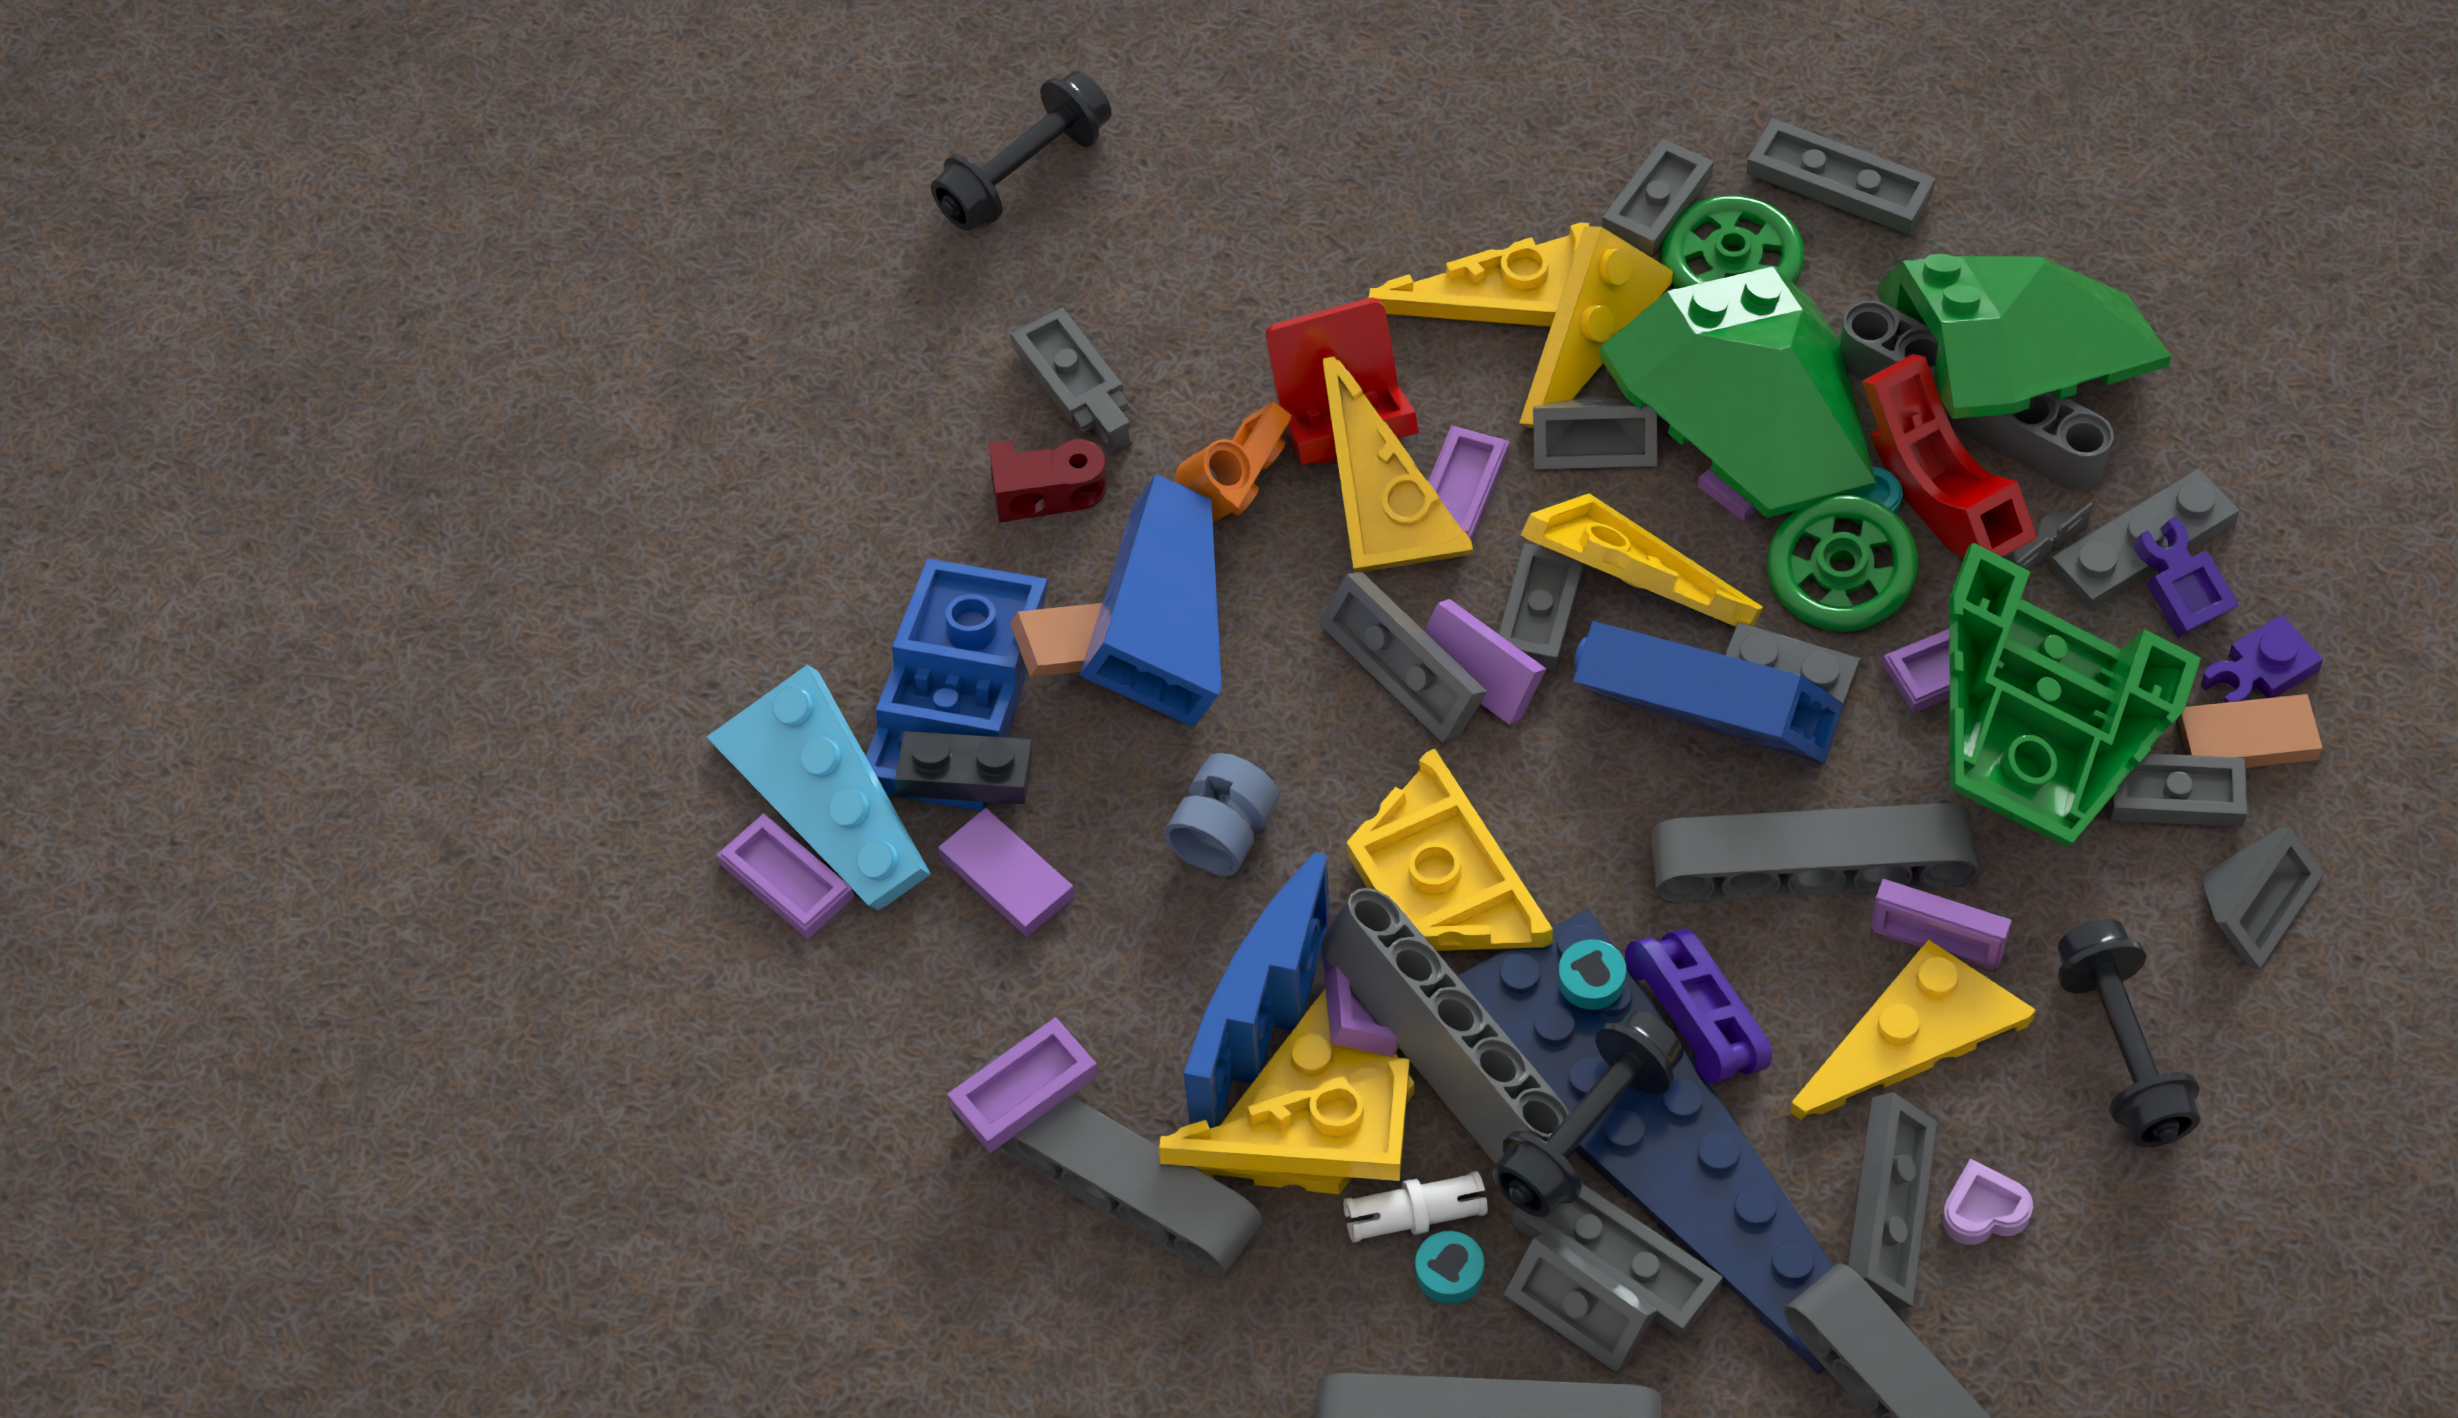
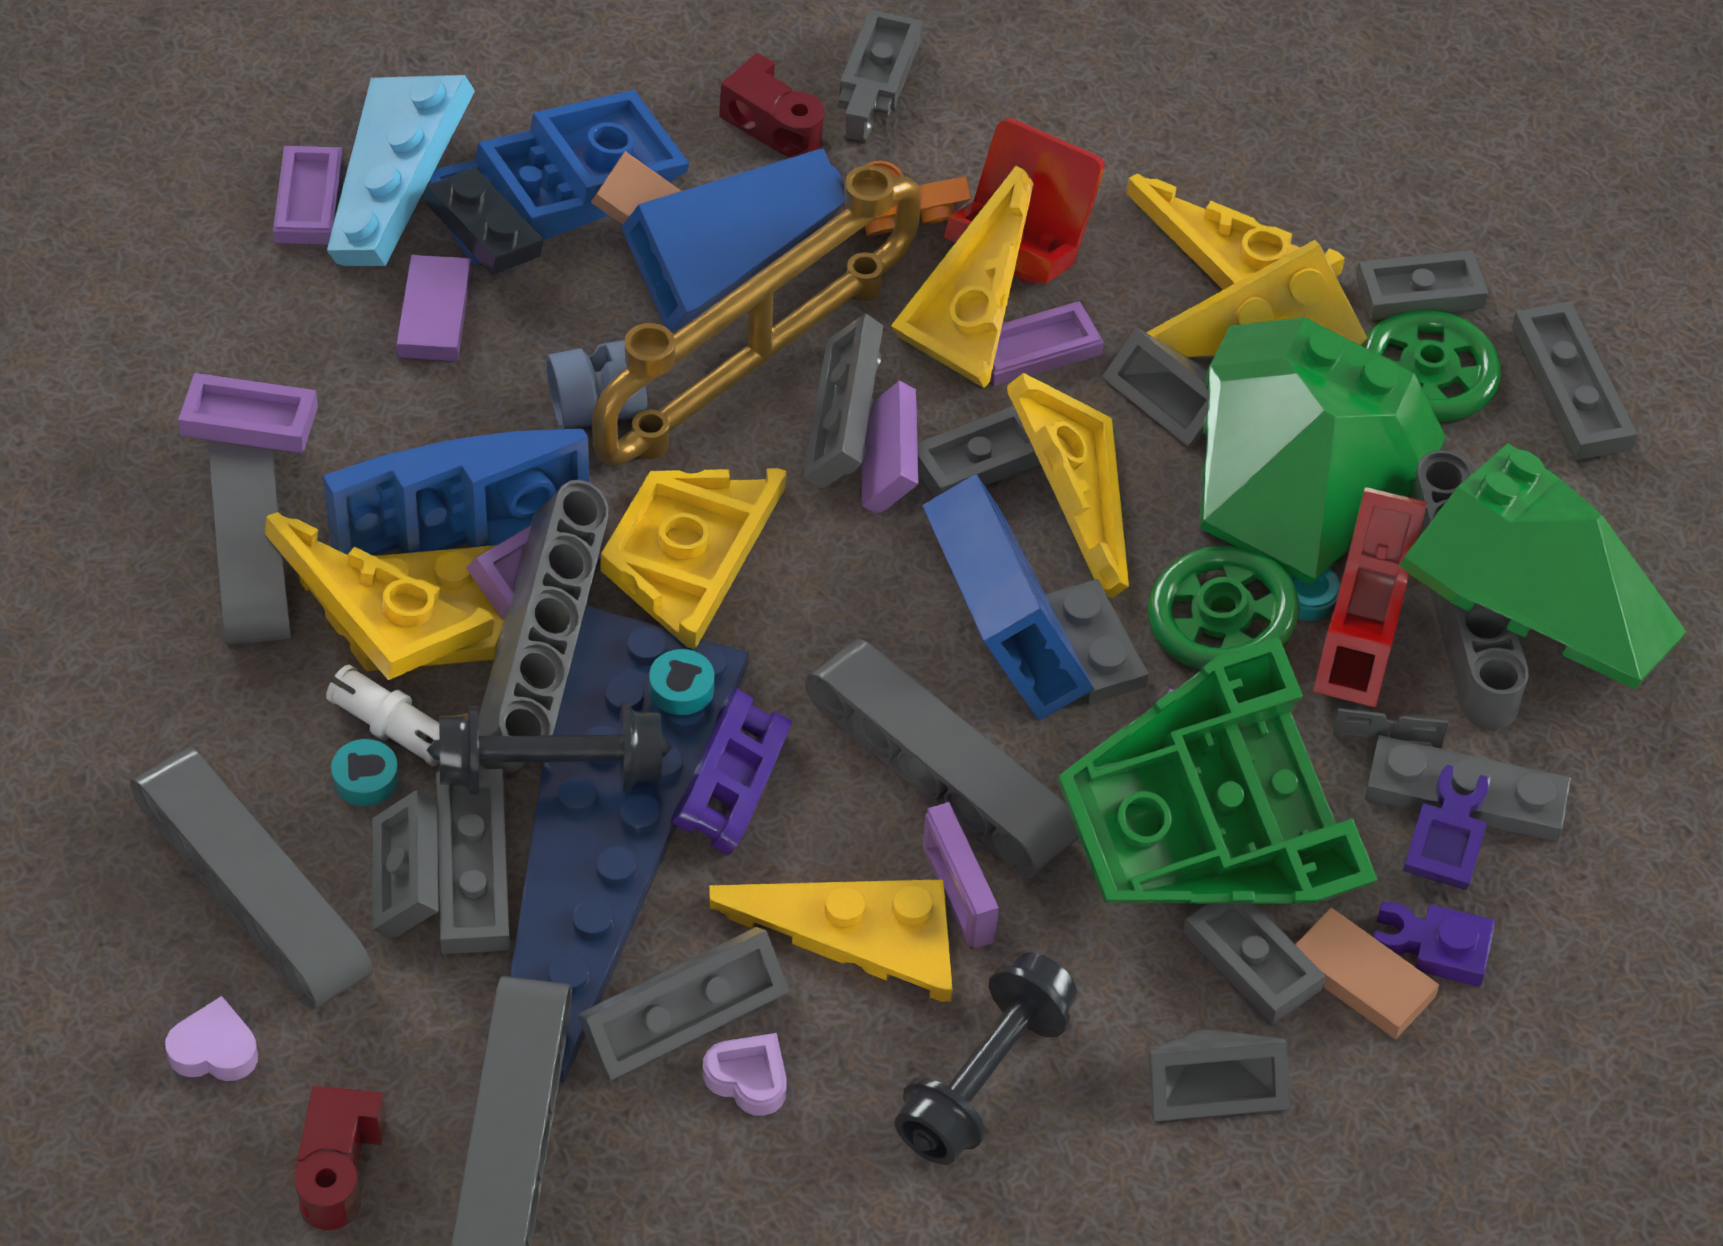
camera: 40 degrees right, 5 degrees down
(1292, 739) = (654, 349): none -> pearl gold bar

